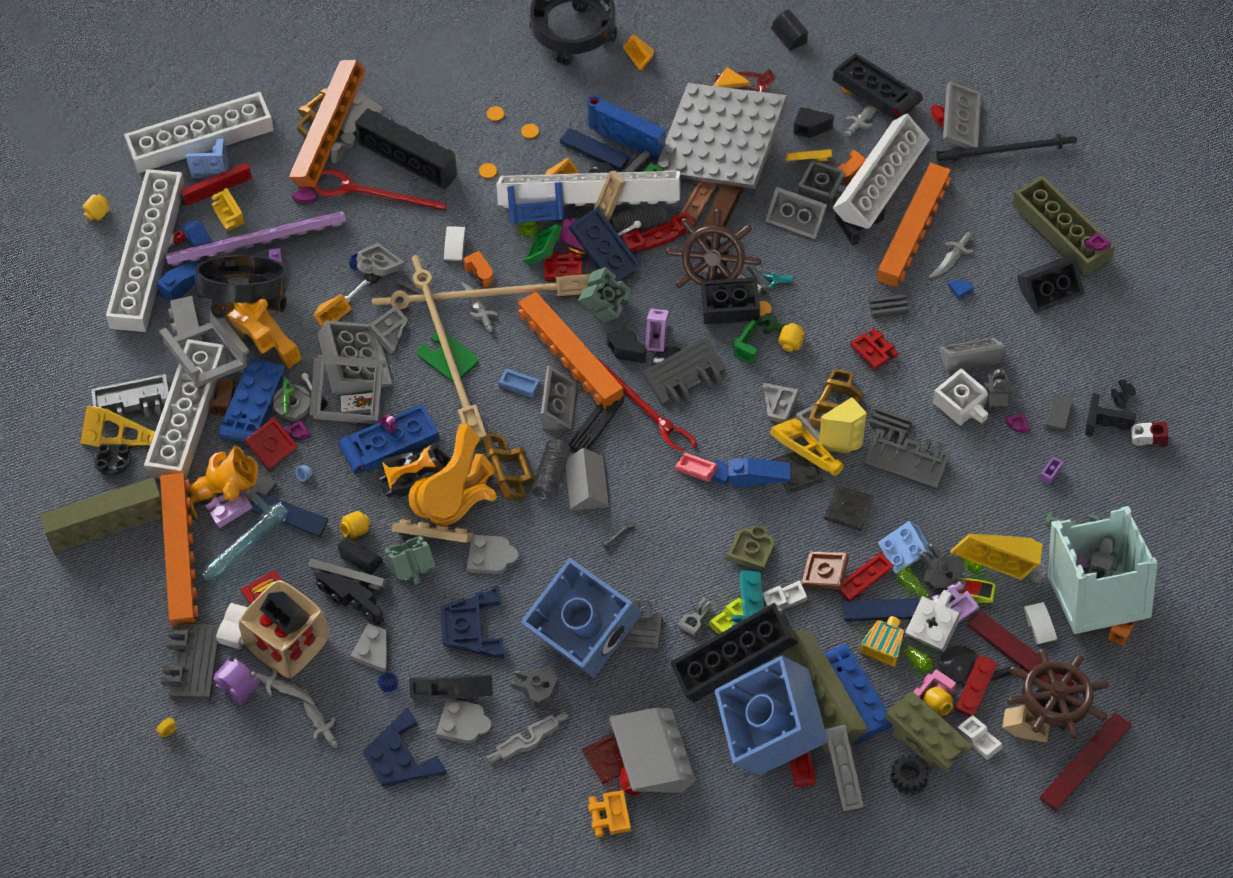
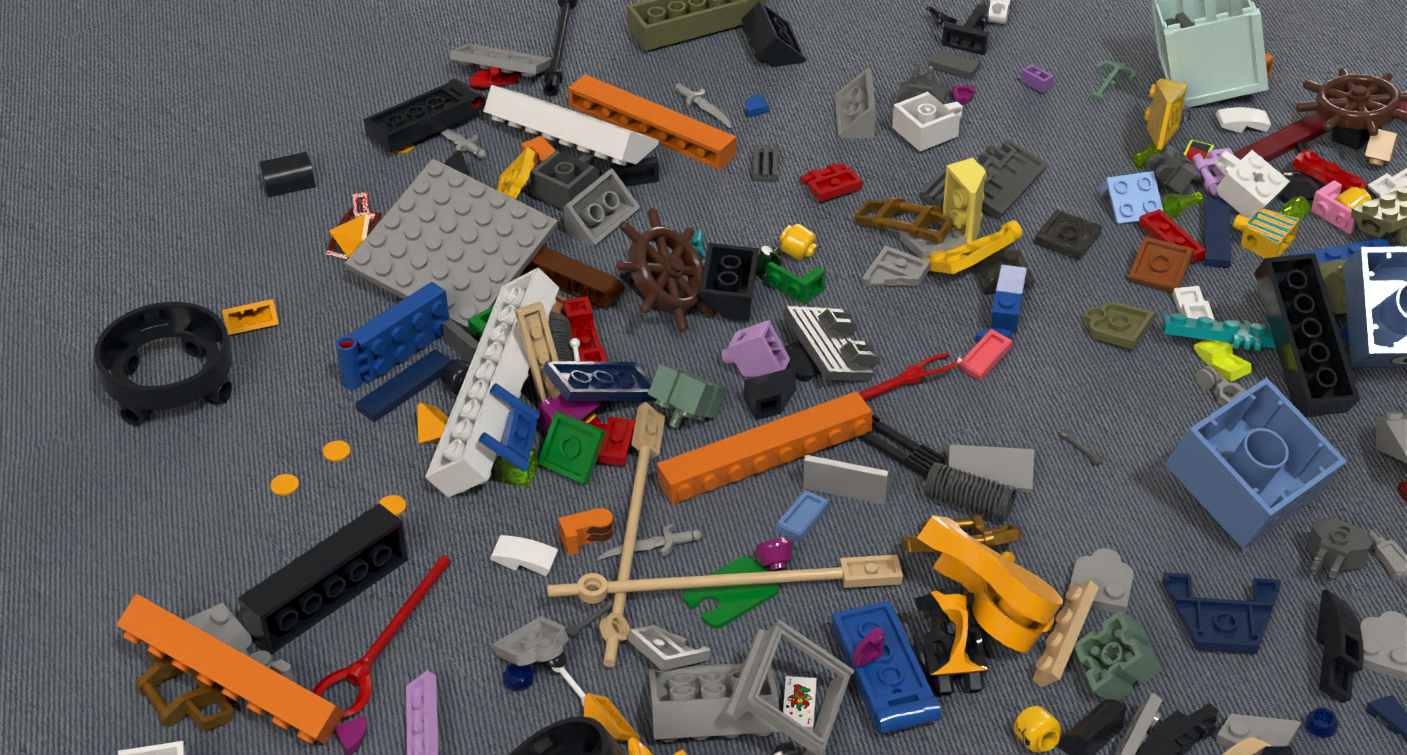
camera: 80 degrees left, 15 degrees down
(476, 370) = (775, 553): none -> magenta cone

